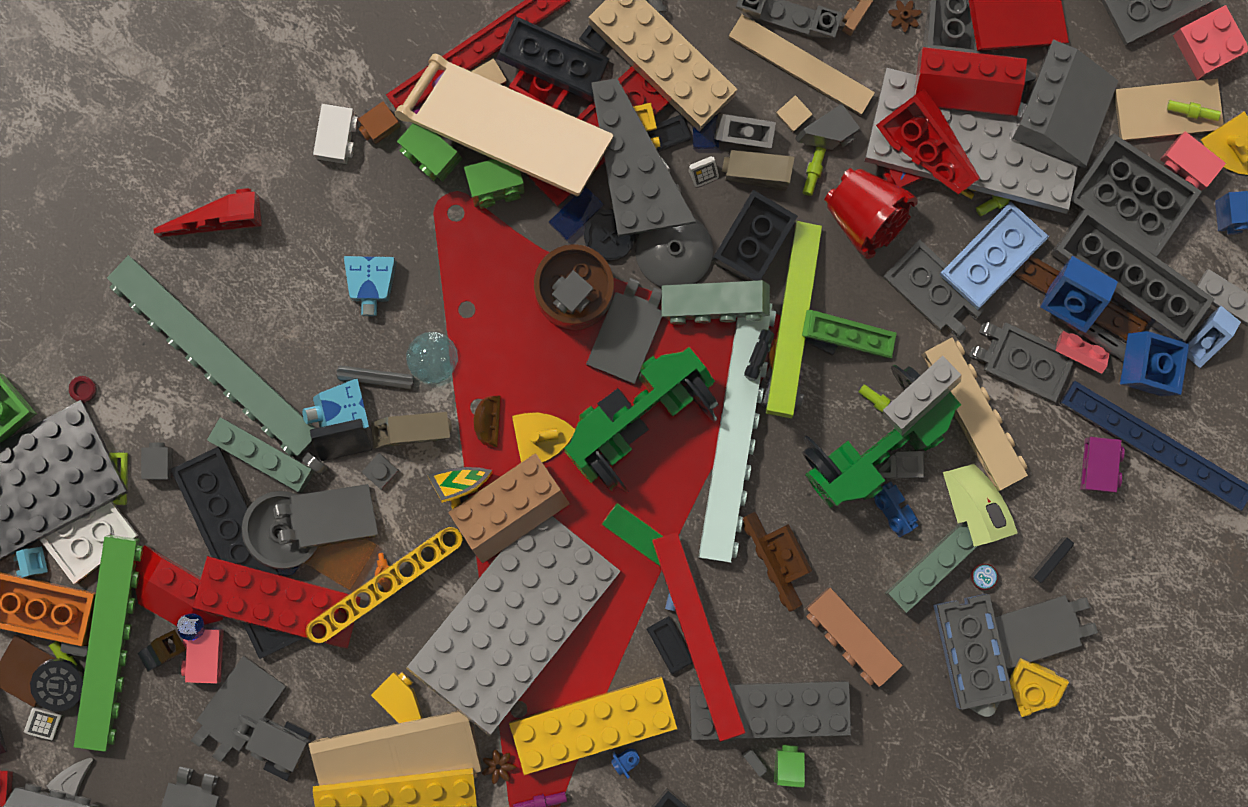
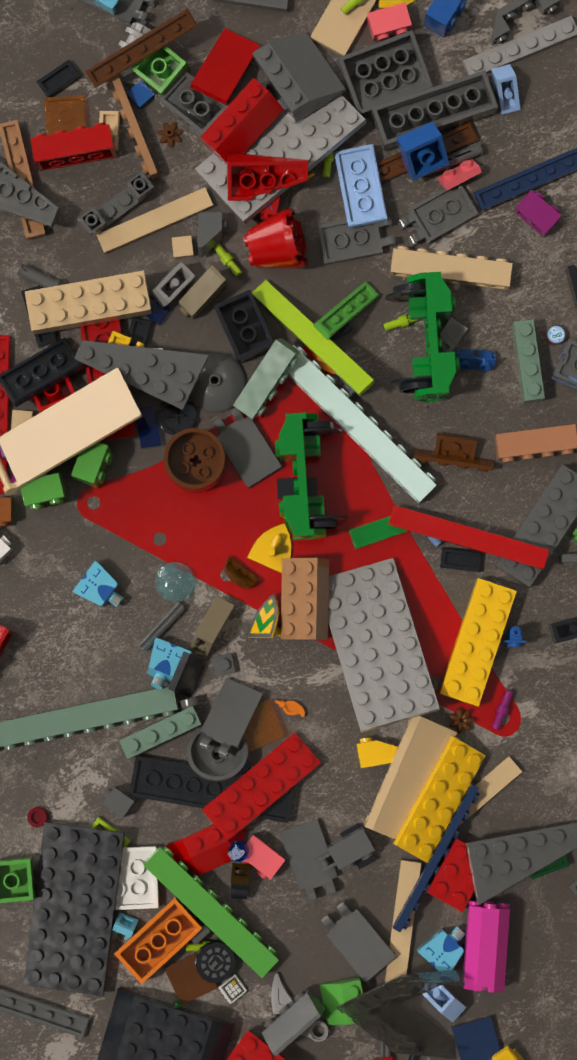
camera: 45 degrees left, 0 degrees up
(397, 582) = (298, 701): yellow beam -> none
(571, 293) = (200, 463): dark grey brick -> none
(703, 171) = (179, 329): slope -> none
(759, 354) = (319, 375): black axle -> none
(922, 395) = (418, 291): light grey brick -> none
(979, 504) = (509, 304): yellowish green slope -> none
(1154, 363) = (498, 135): blue brick -> none

